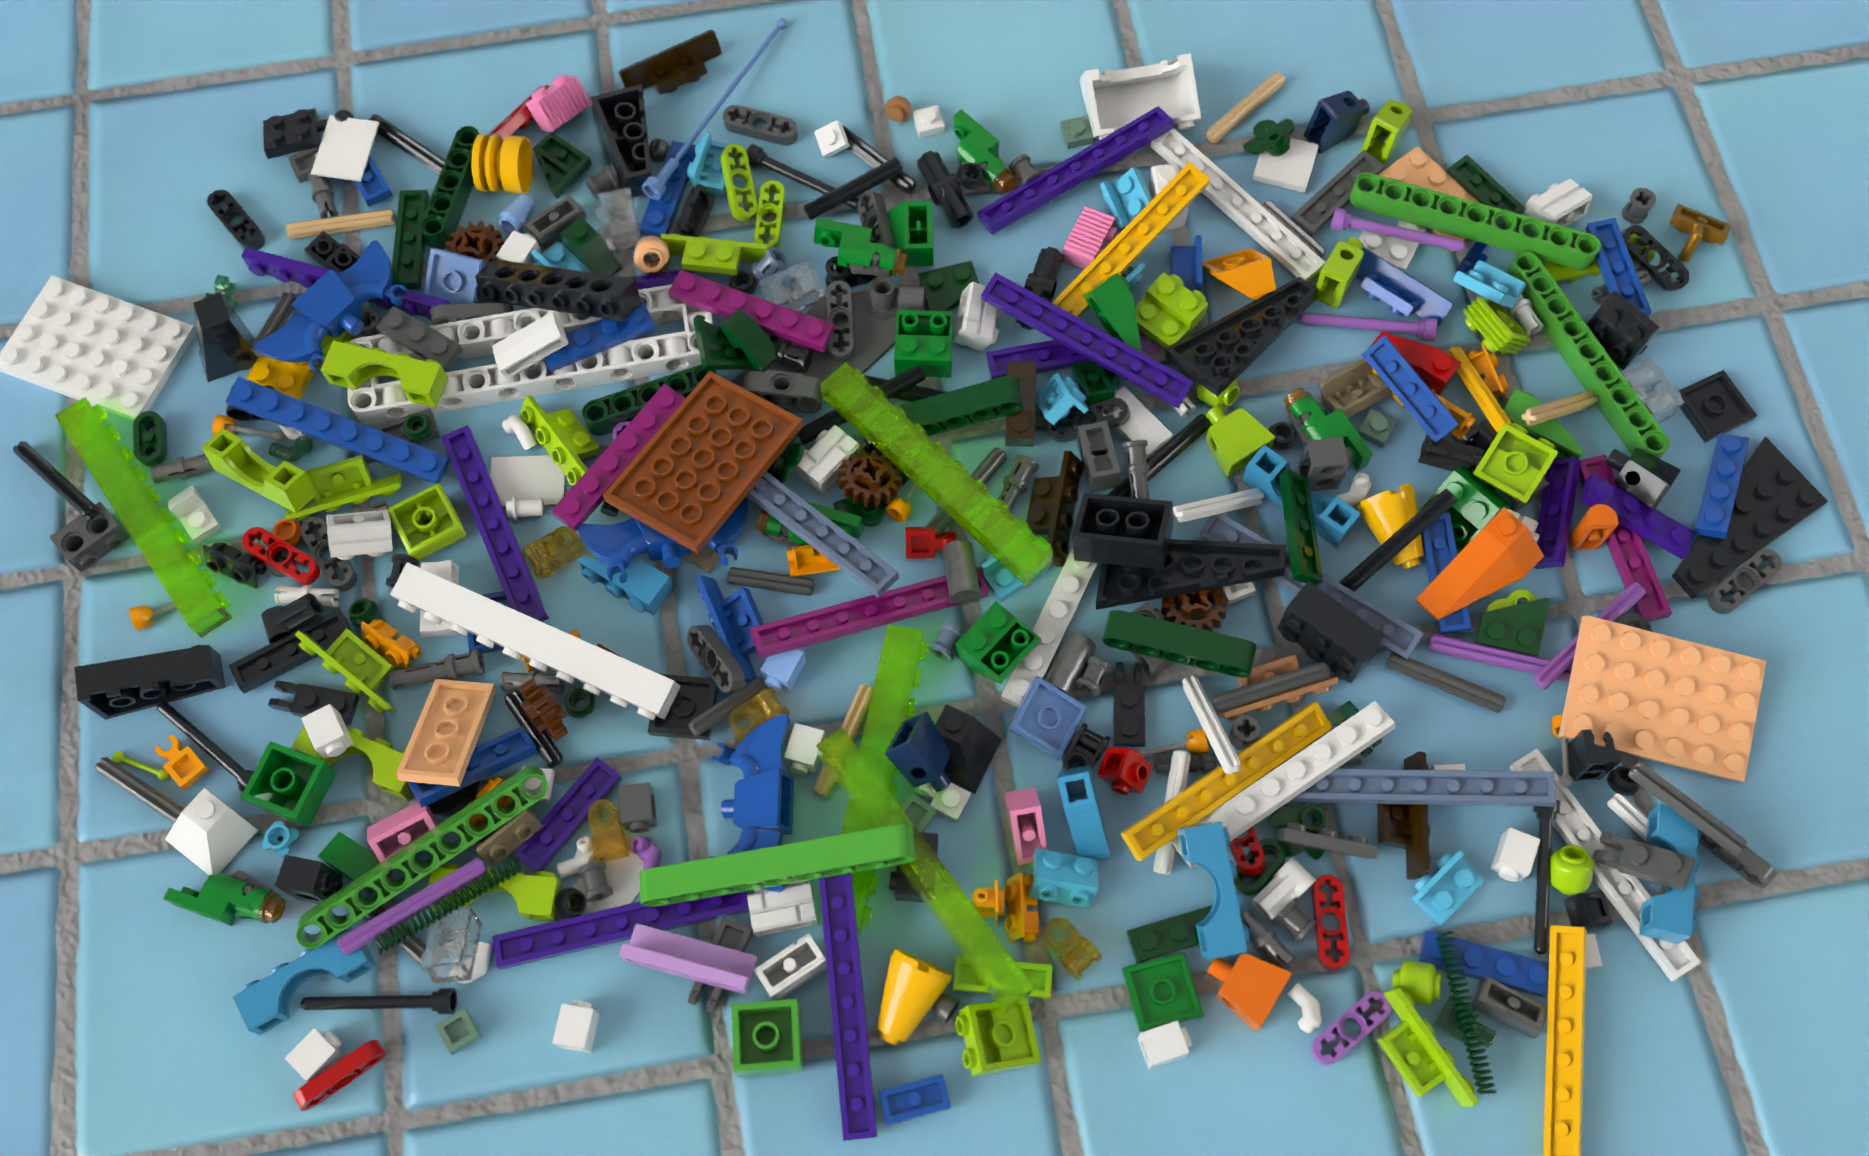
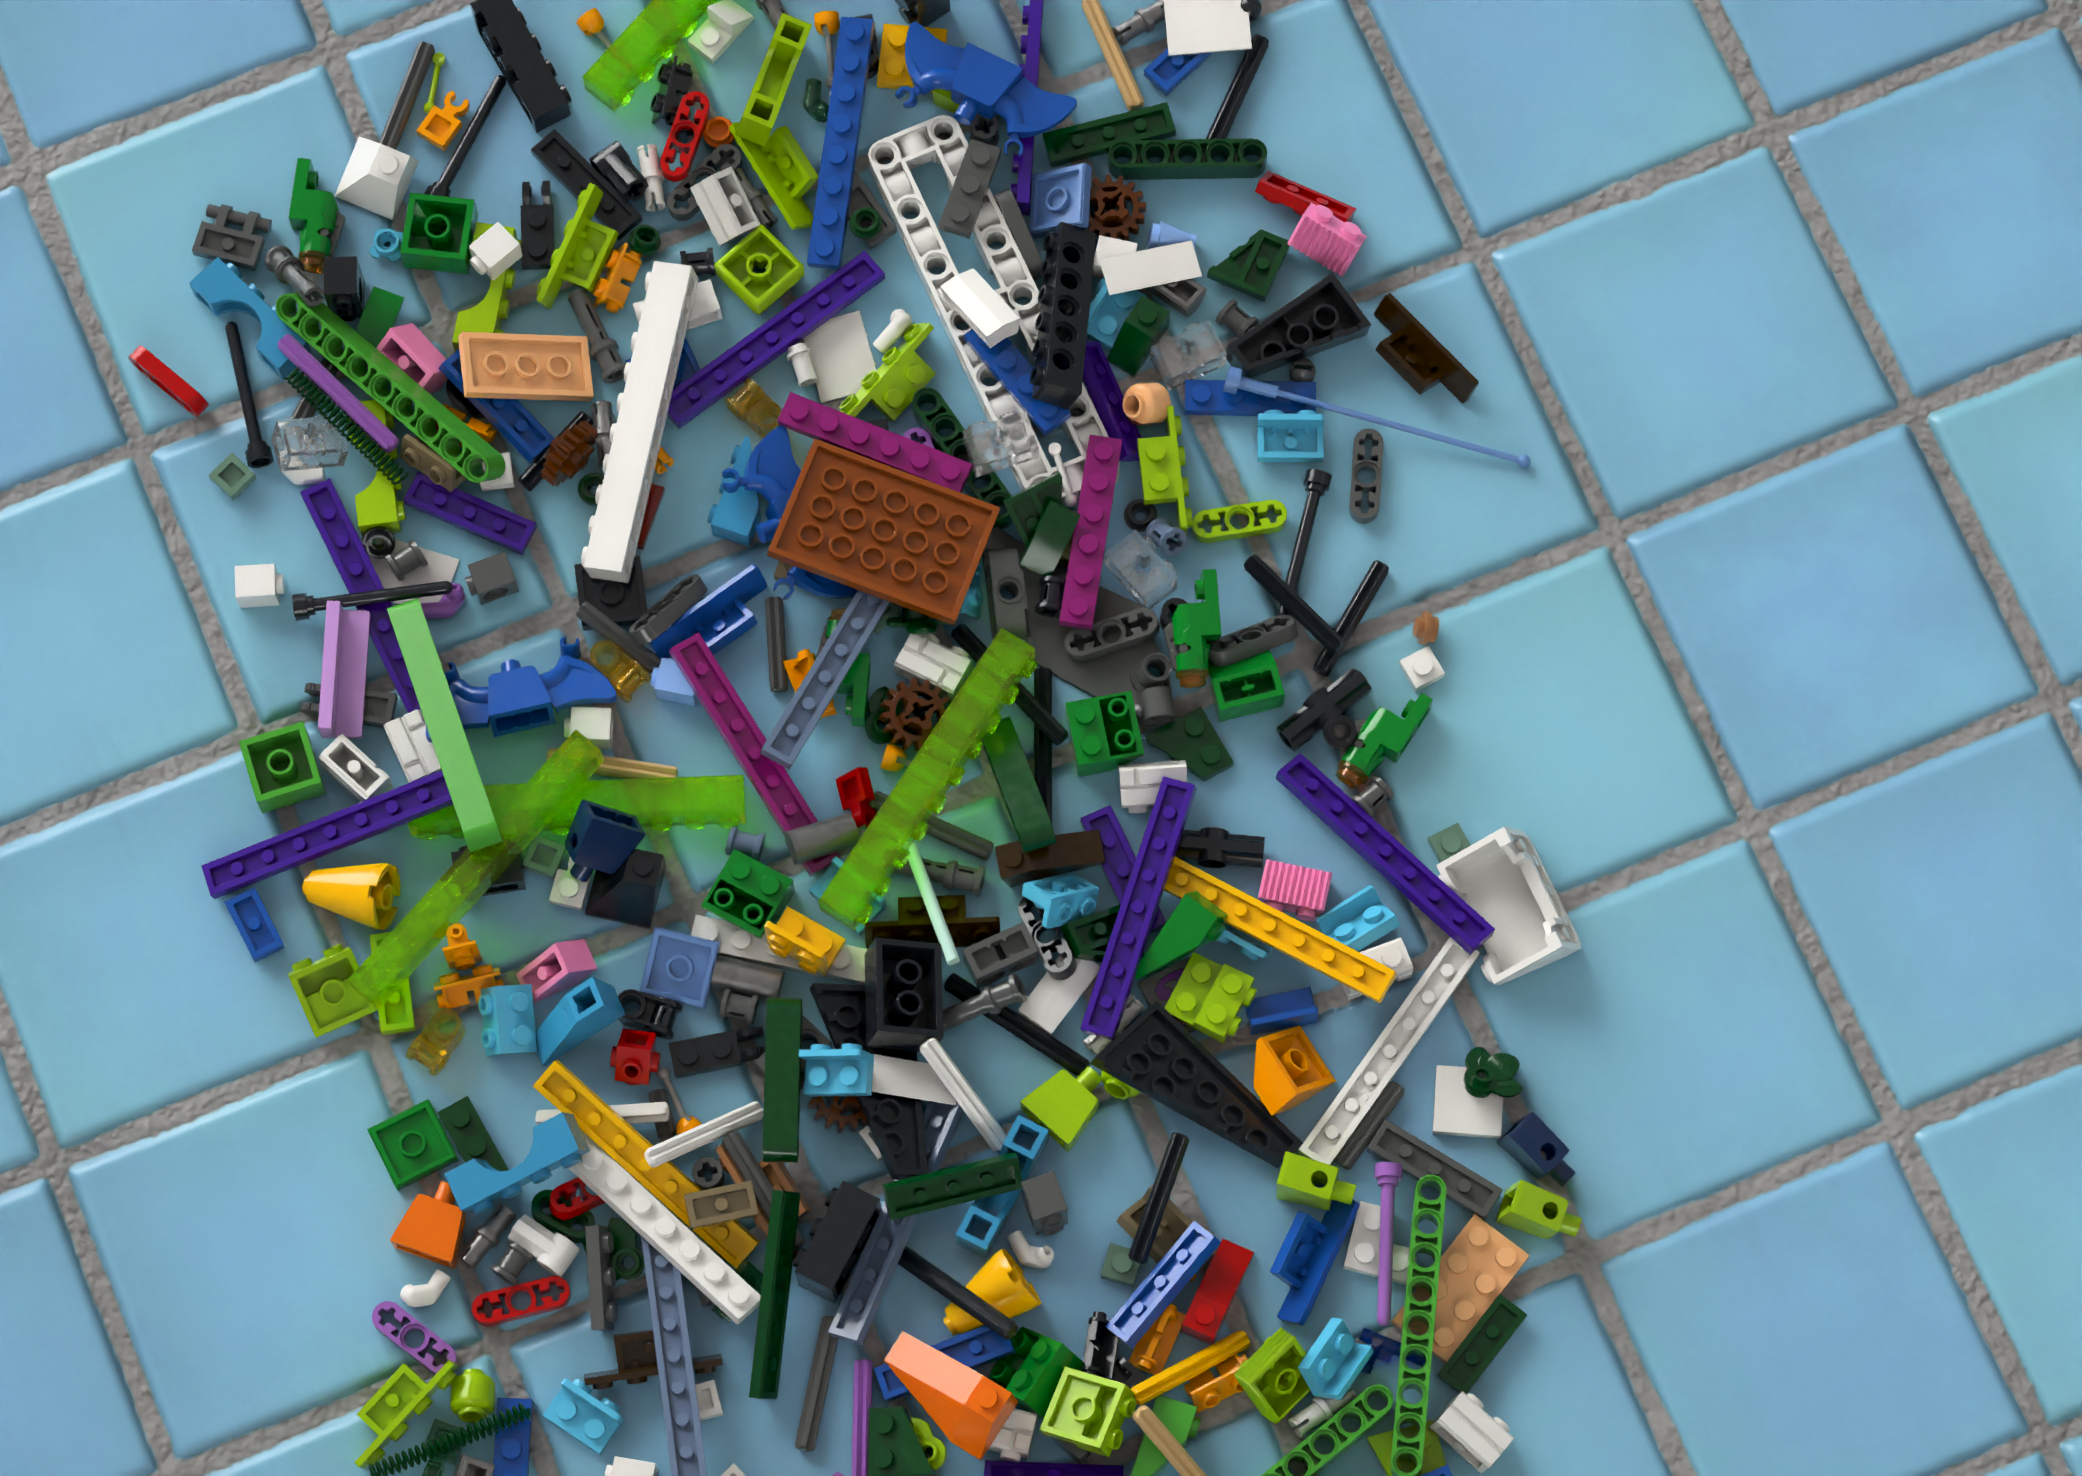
camera: 75 degrees right, 5 degrees up
(216, 997) = (231, 245): none -> dark grey plate
(273, 929) = (290, 271): none -> dark grey pin
(276, 319) = (965, 30): dark grey axle -> none
(315, 1053) = (182, 353): white brick -> none
(331, 253) = (1068, 61): black slope -> none
(353, 365) = (912, 204): lime arch -> none
(502, 164) = (1223, 203): yellow wheel -> none
(537, 226) = (1150, 267): none -> white sticker
(583, 856) = (428, 541): white arm -> none
(608, 837) = (452, 558): clear yellow piece -> none
(613, 980) = (305, 605): none -> black piece
(658, 343) = (988, 455): none -> clear brick
(671, 323) = (1055, 451): none -> white hinge
(695, 212) = (1219, 436): black hinge -> none
(742, 171) = (1245, 476): lime beam -> none
(831, 139) = (1361, 562): white plate -> none
(945, 1007) = (351, 933): dark grey hinge -> none
(1052, 604) = (805, 941): none -> yellow bracket
(1053, 494) = (932, 906): none -> bar
(1164, 1044) = (357, 1153): white brick -> none
(1184, 594) = (837, 1071): none -> medium azure bracket
(1194, 549) = (909, 1080): none -> white sticker
(1245, 107) = (1538, 1040): tan axle -> none
(1283, 719) = (721, 1204): none -> dark tan plate
(1285, 430) = (1079, 1148): black plate -> none
(1315, 423) = (1097, 1199): green plate -> none
(1336, 377) = (1158, 1198): none -> black axle
(1371, 691) = (774, 1294): none -> dark green tile
(1423, 328) = (1266, 1299): medium lavender piece -> none

